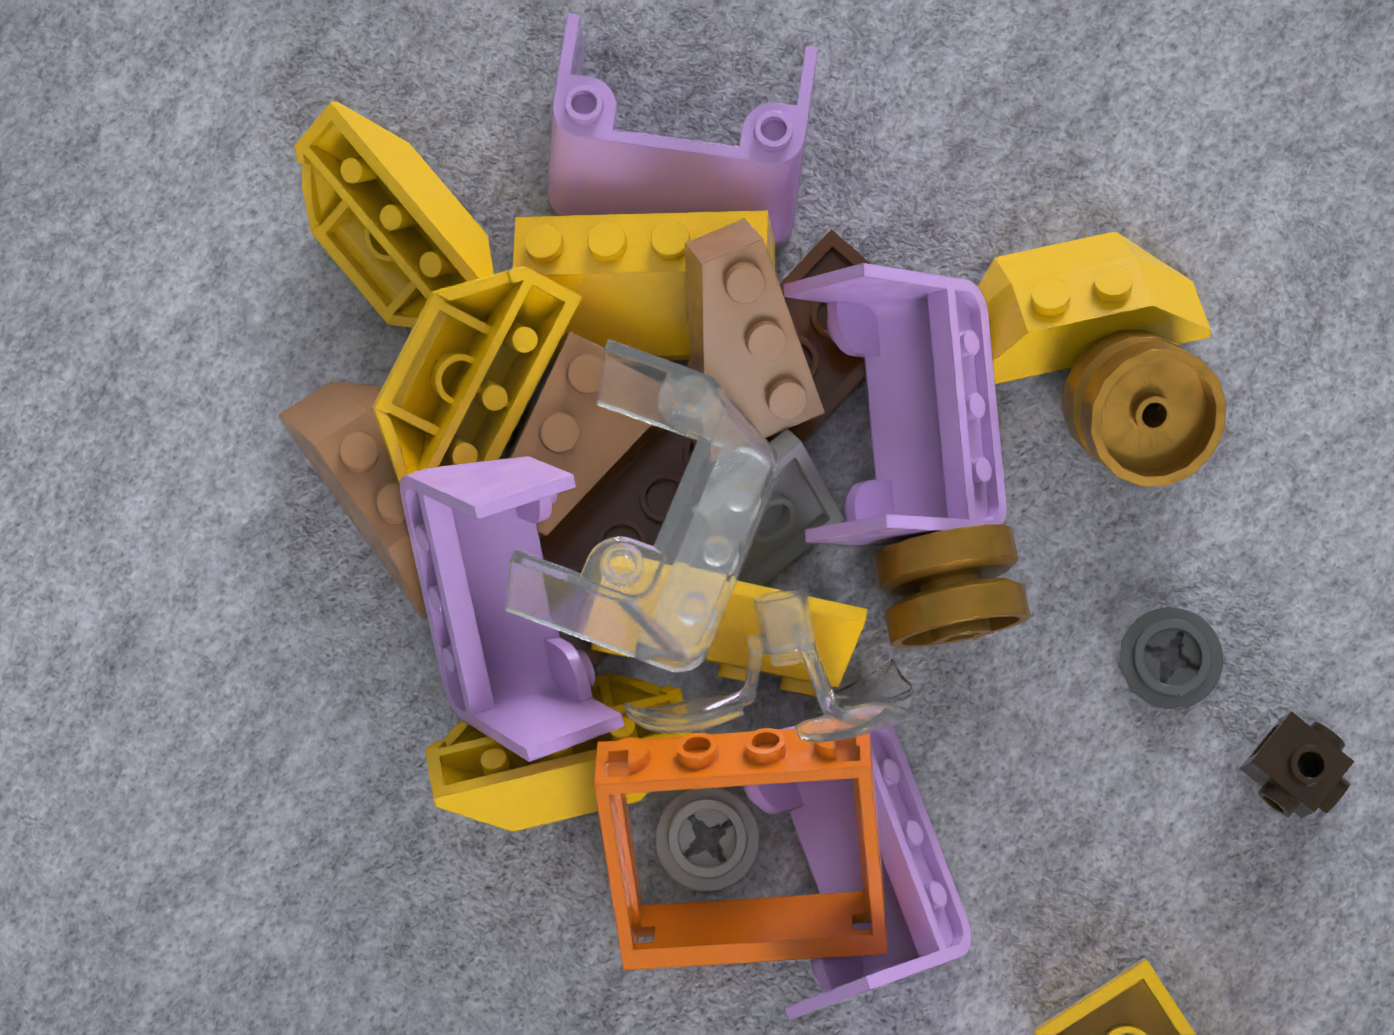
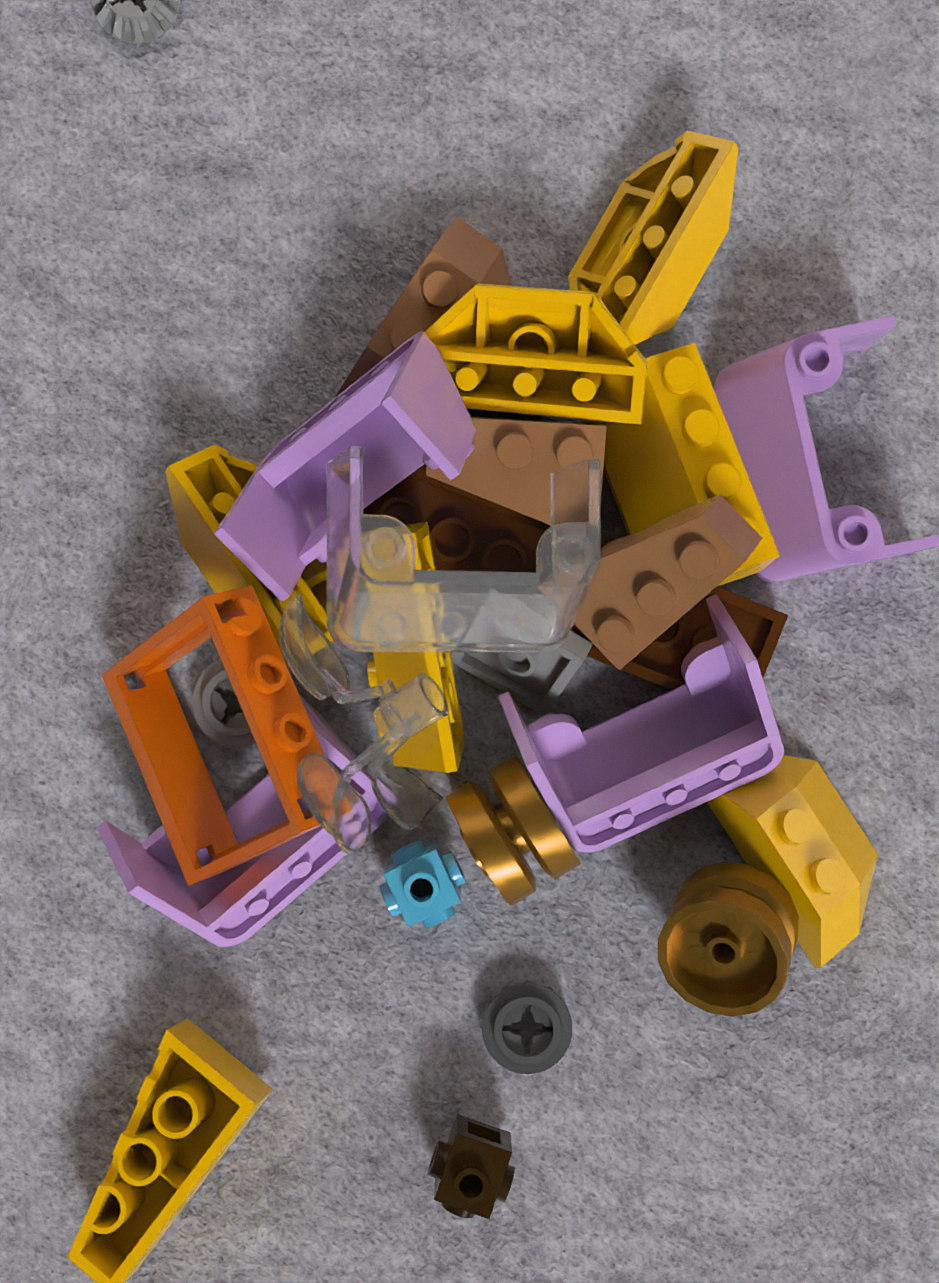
camera: 65 degrees right, 10 degrees up
(961, 726) = (423, 862): none -> medium azure brick

